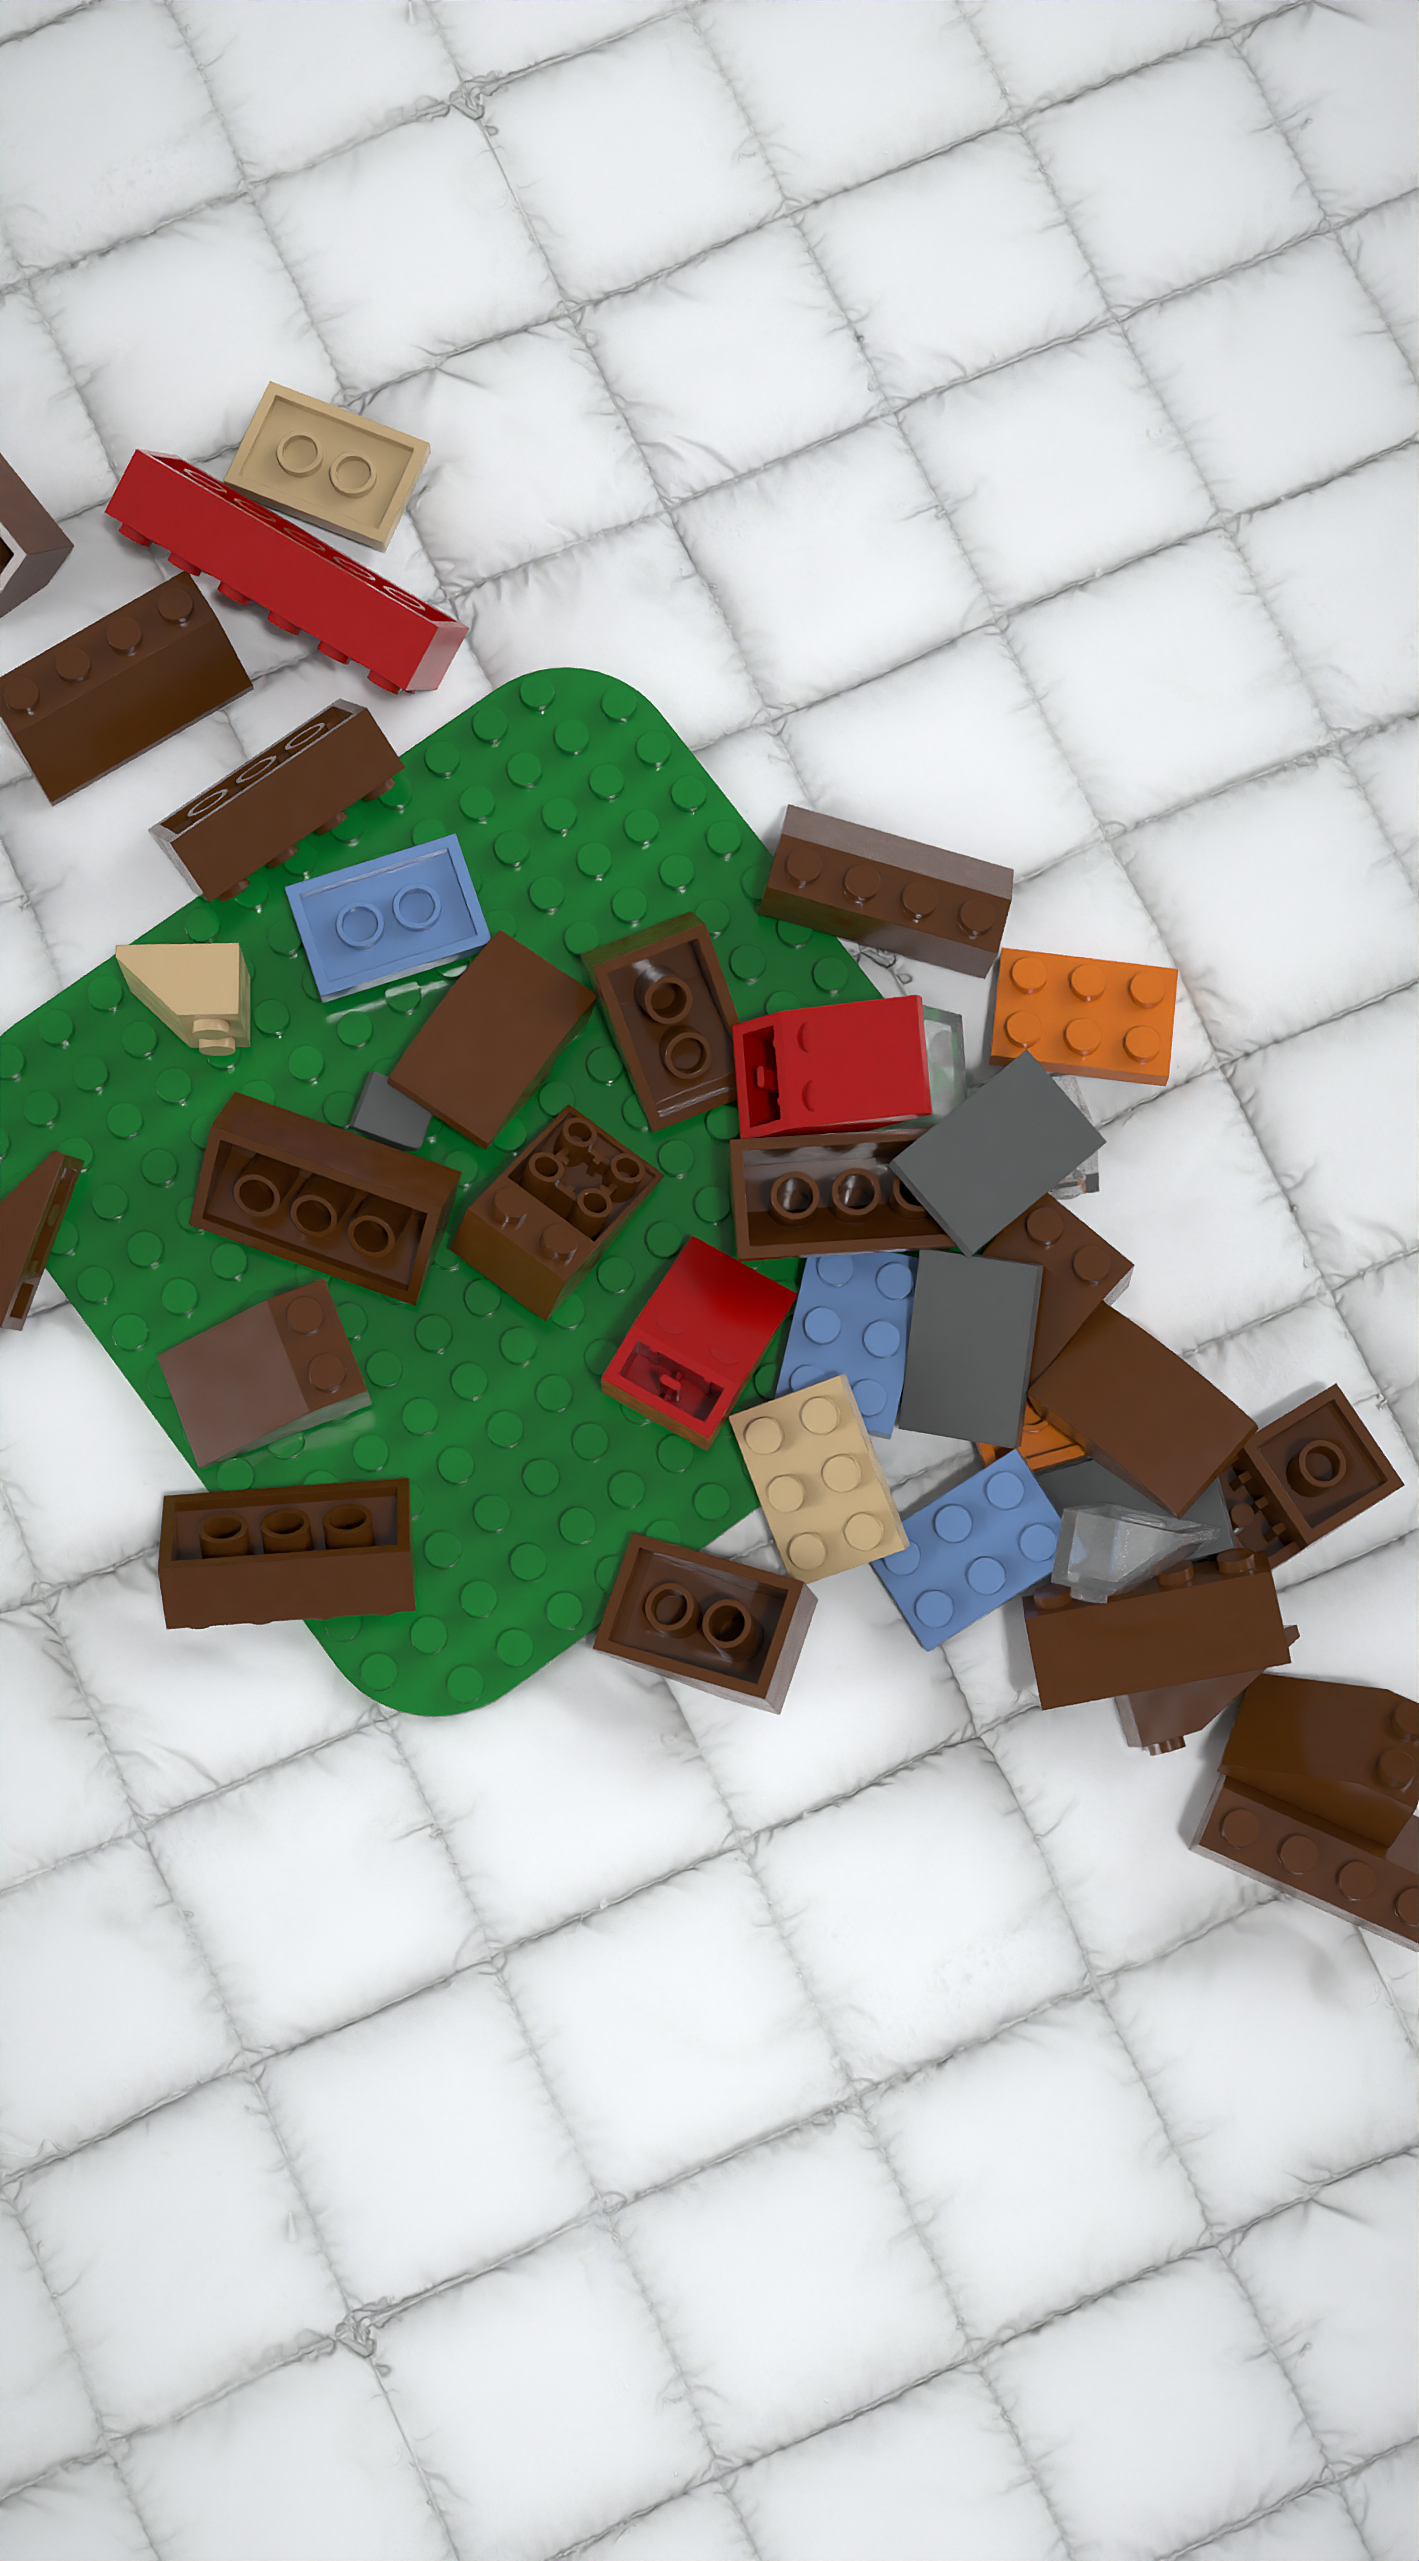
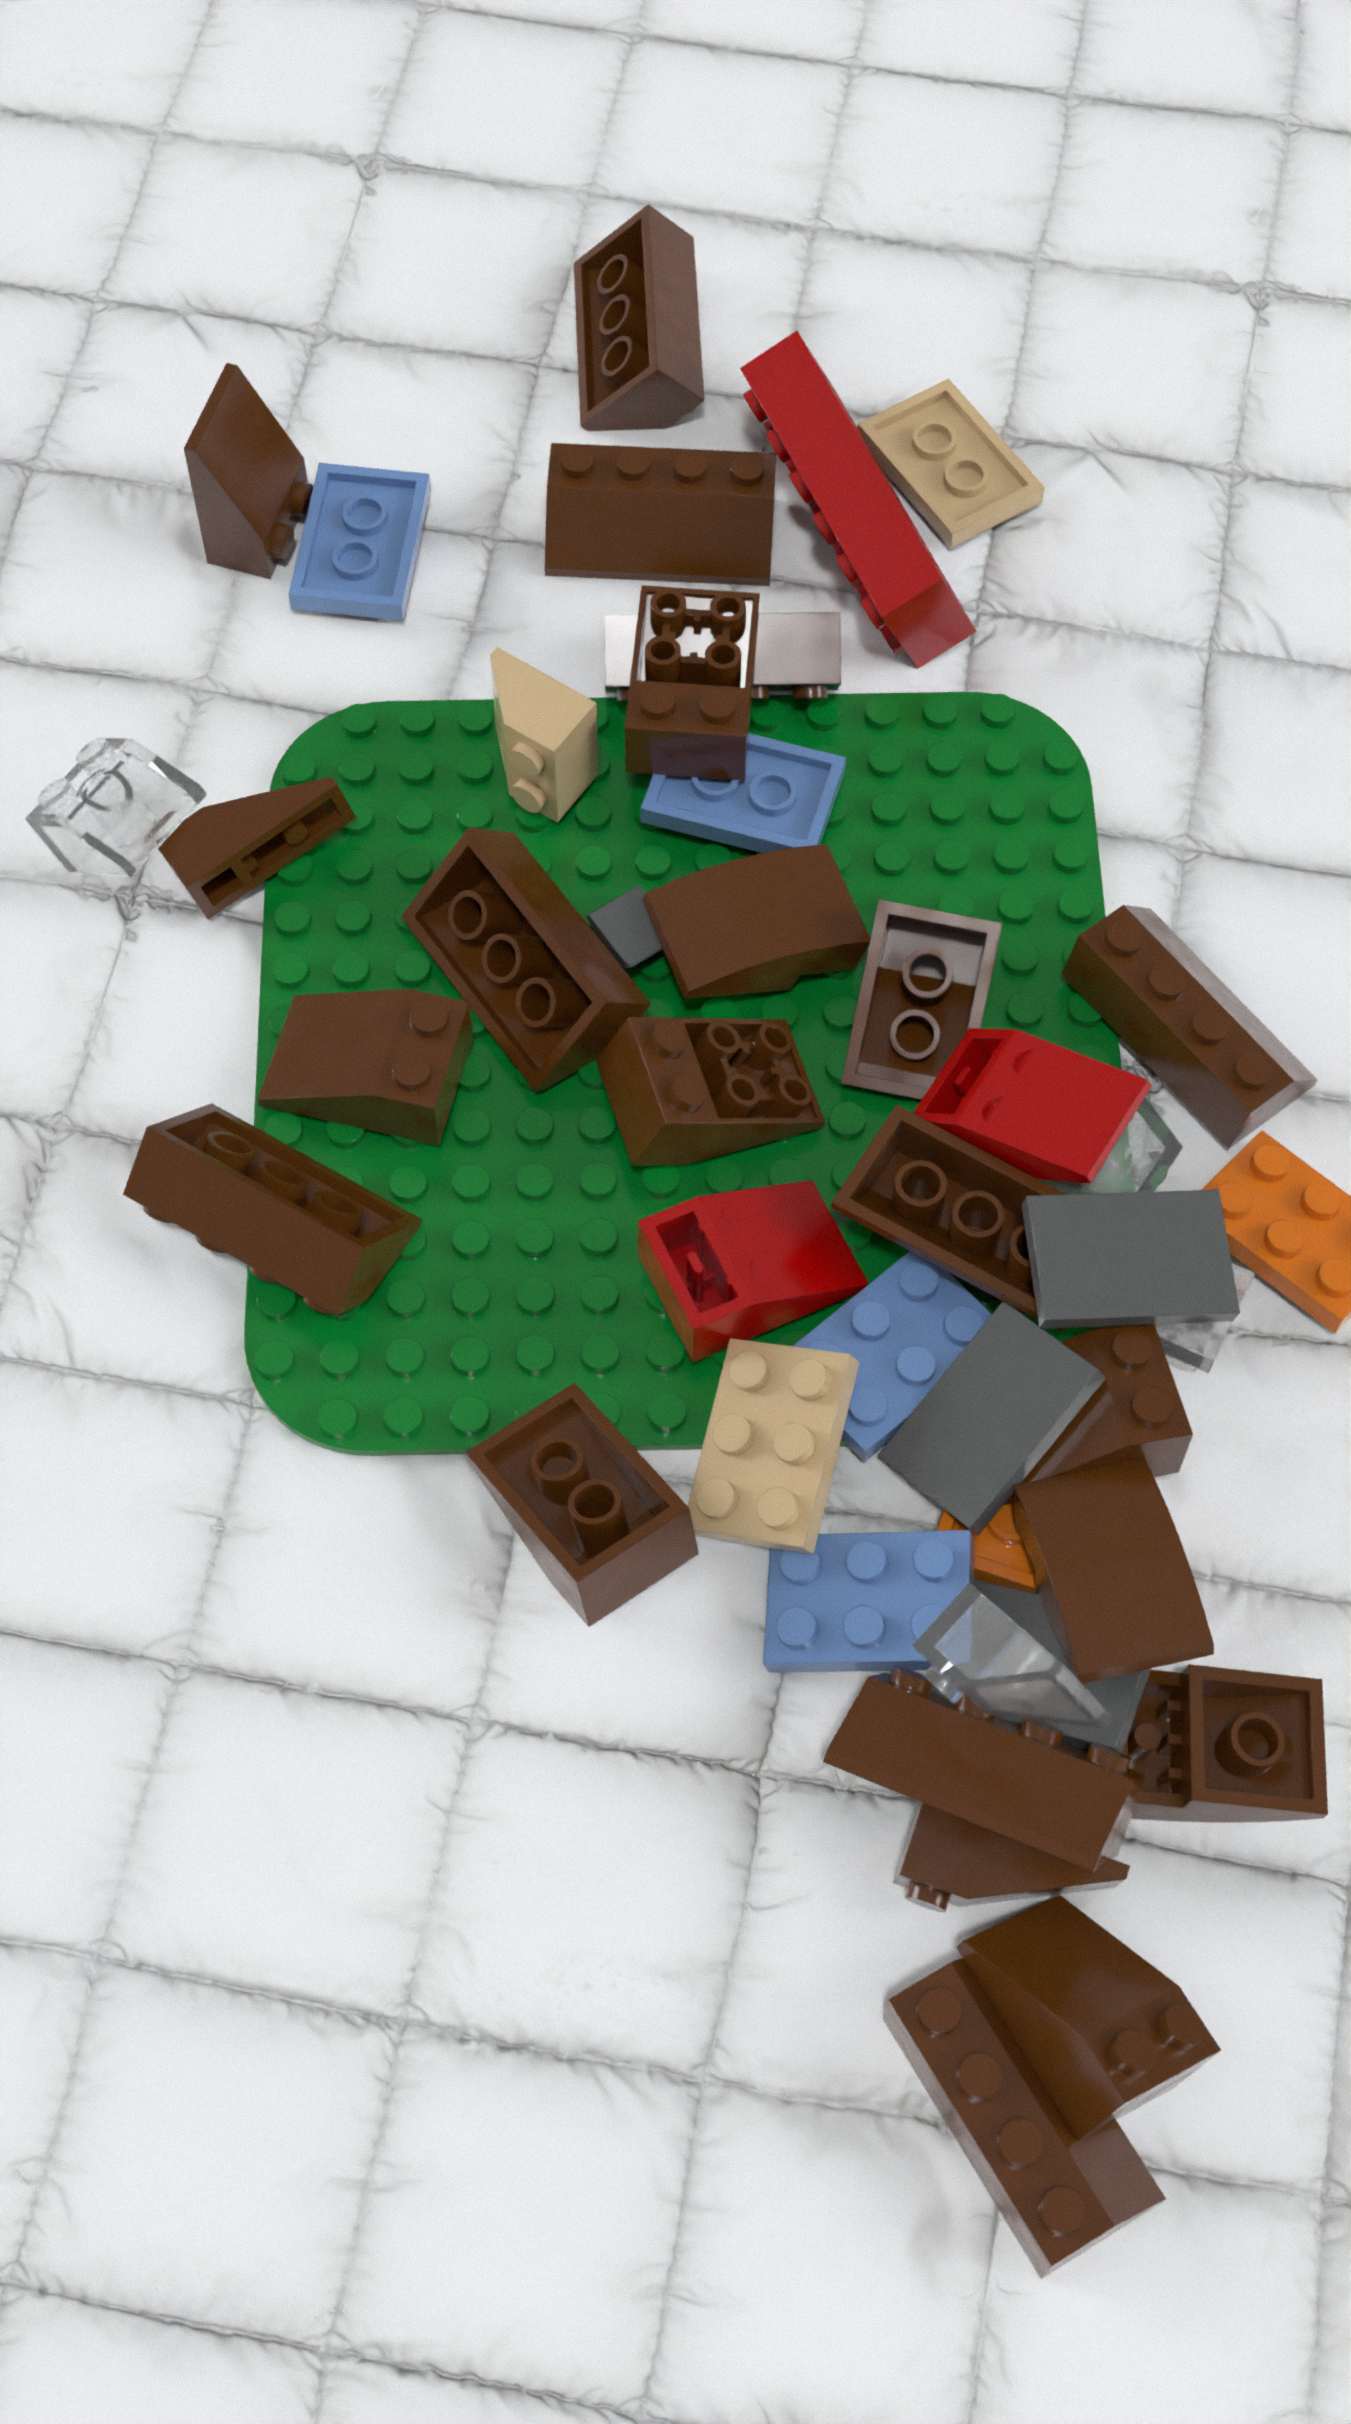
camera: 40 degrees right, 15 degrees down
(289, 855) = (691, 683): none -> reddish brown slope

